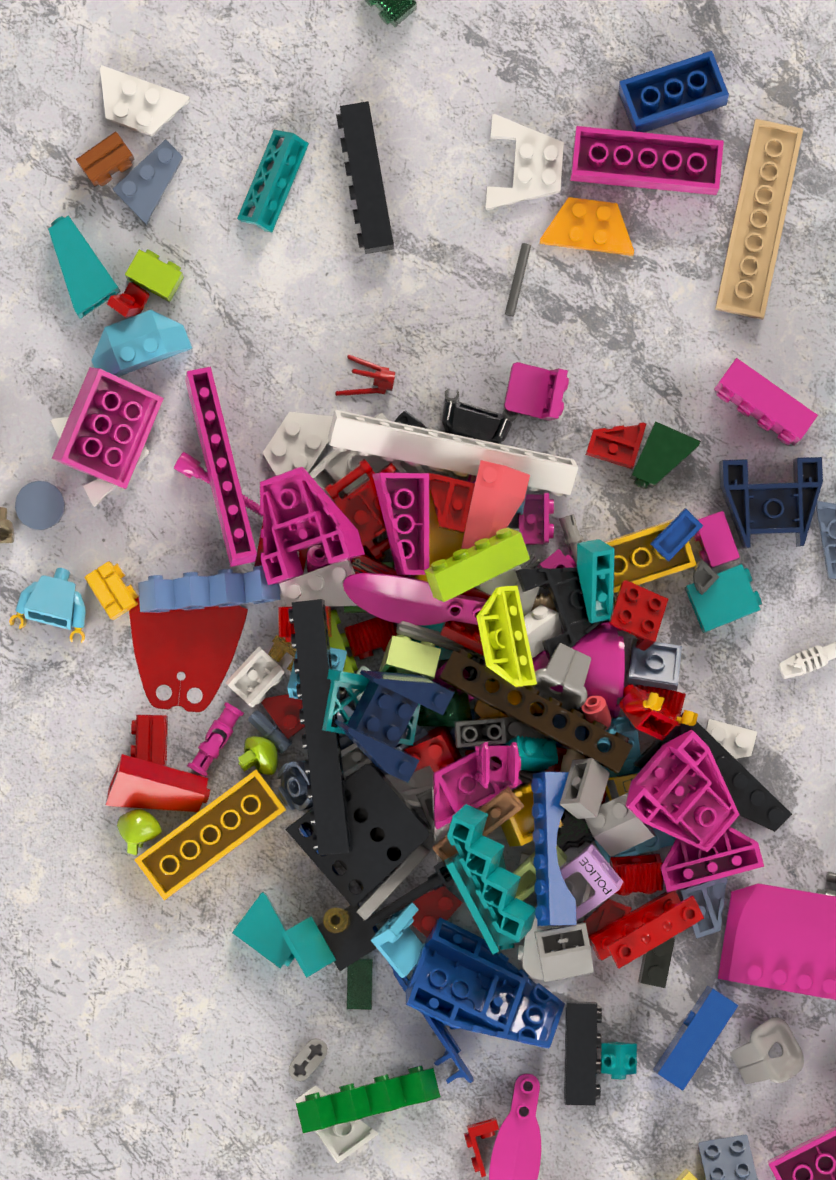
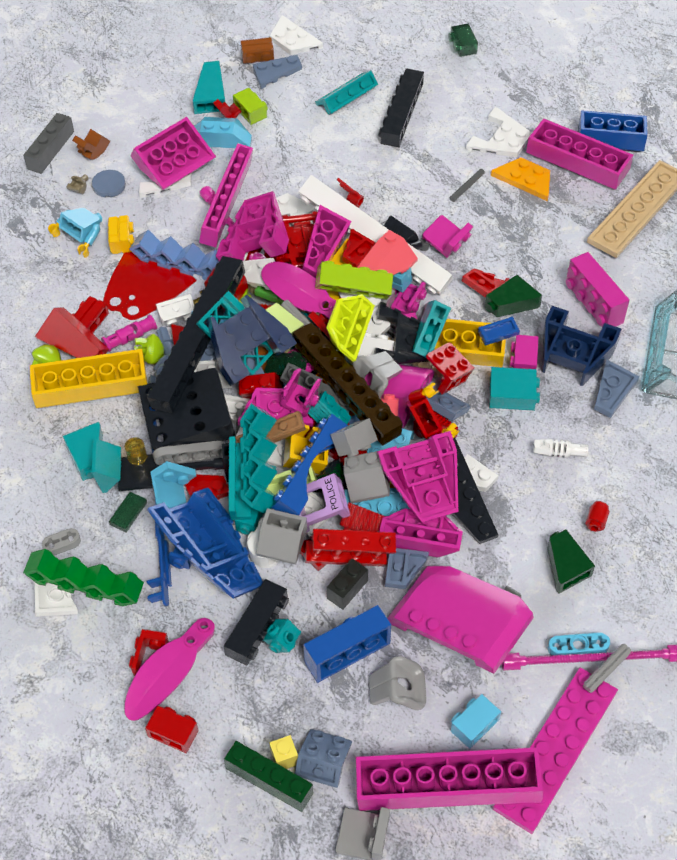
camera: 30 degrees right, 30 degrees down
(703, 576) = (506, 363): dark grey tile -> none

